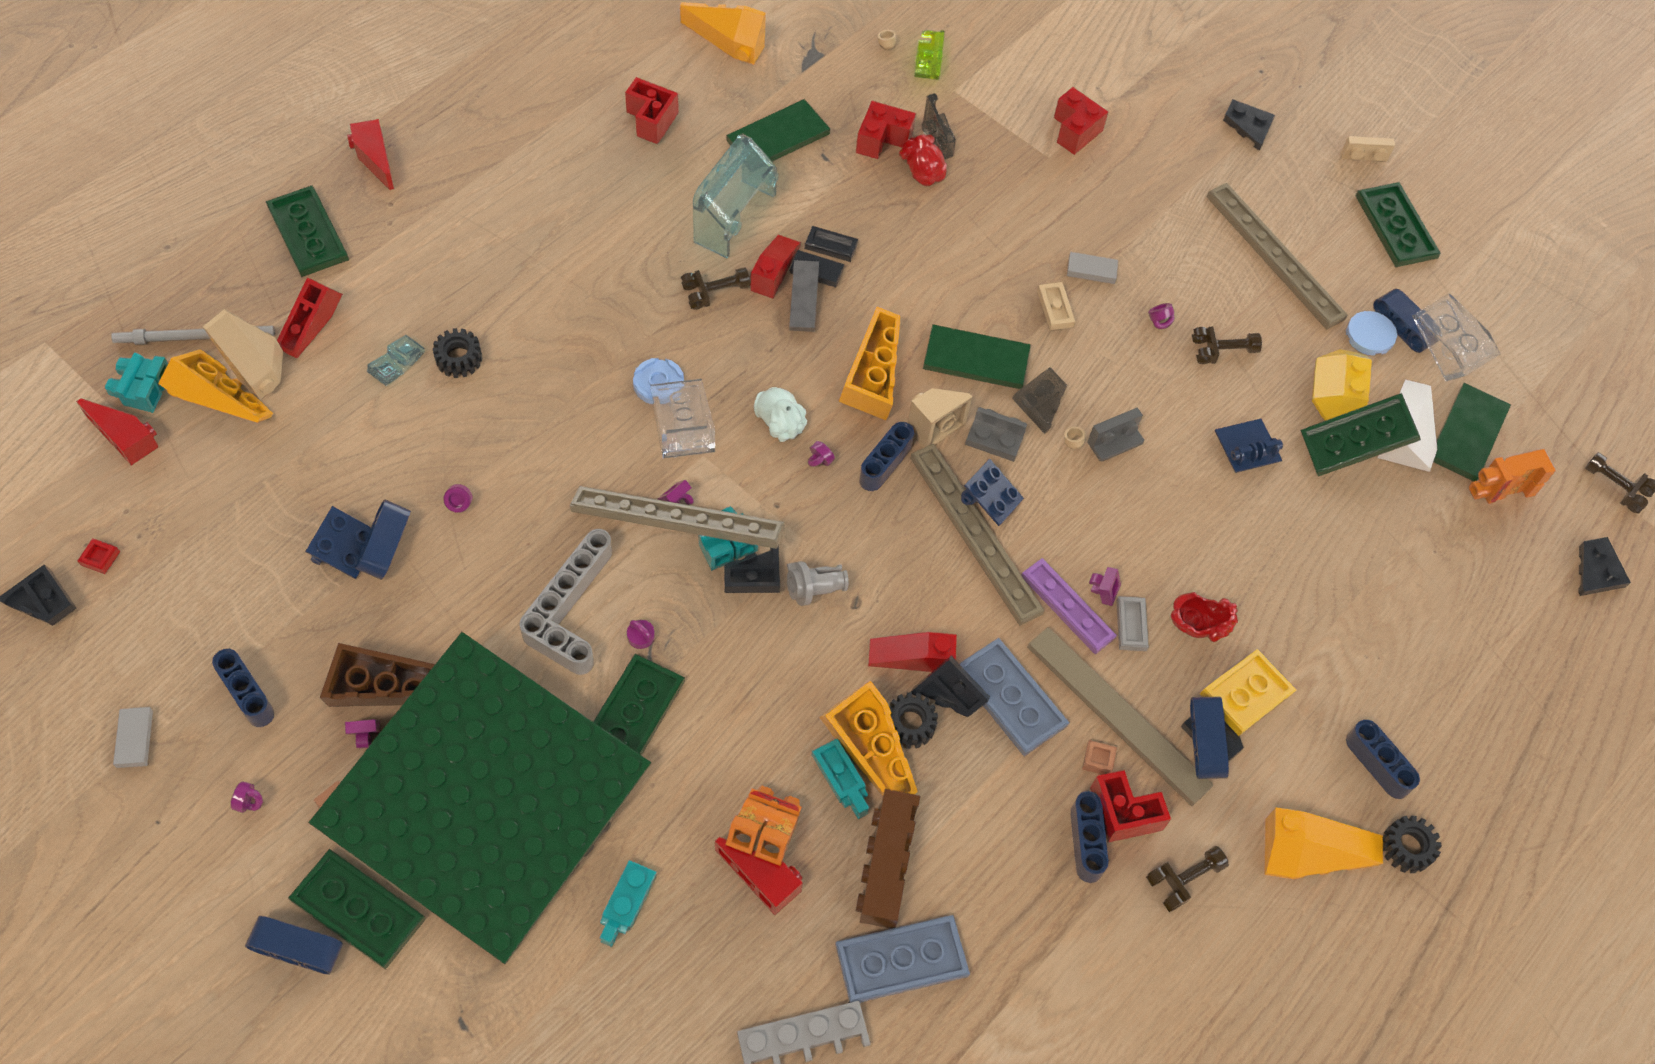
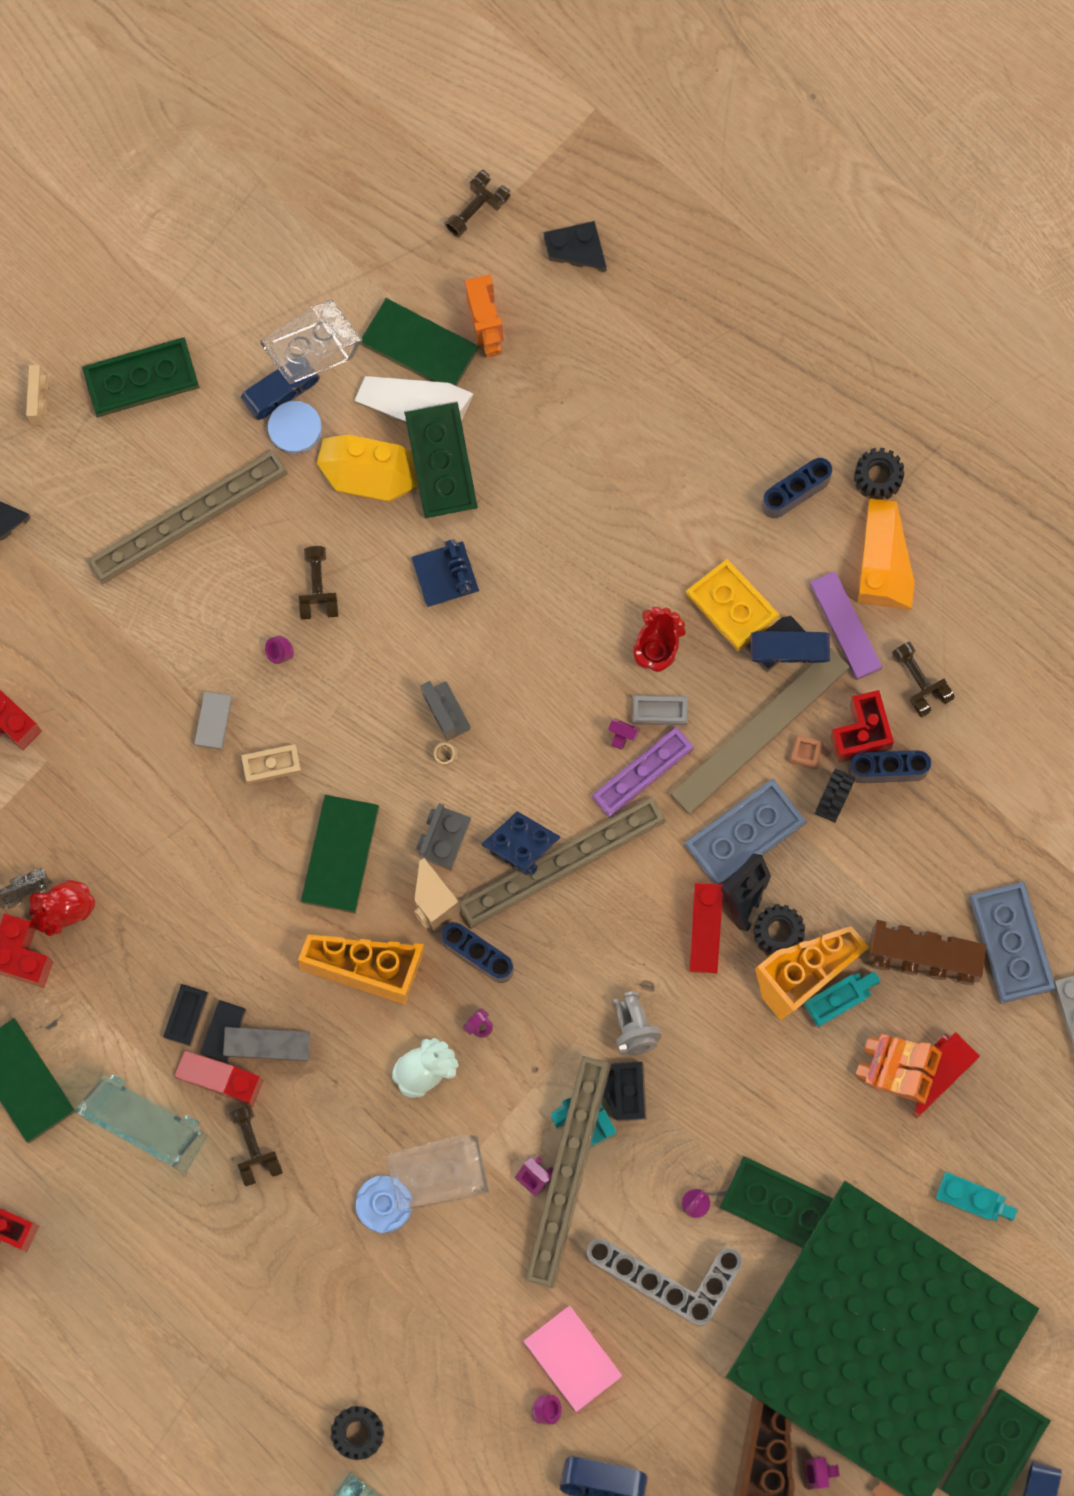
camera: 80 degrees left, 15 degrees up
(503, 523) = (573, 1358): none -> bright pink tile
(1041, 398) = (395, 786): clear smoke wing -> none
(1054, 775) = (835, 795): none -> black tyre
(1238, 803) = (846, 625): none -> medium lavender tile

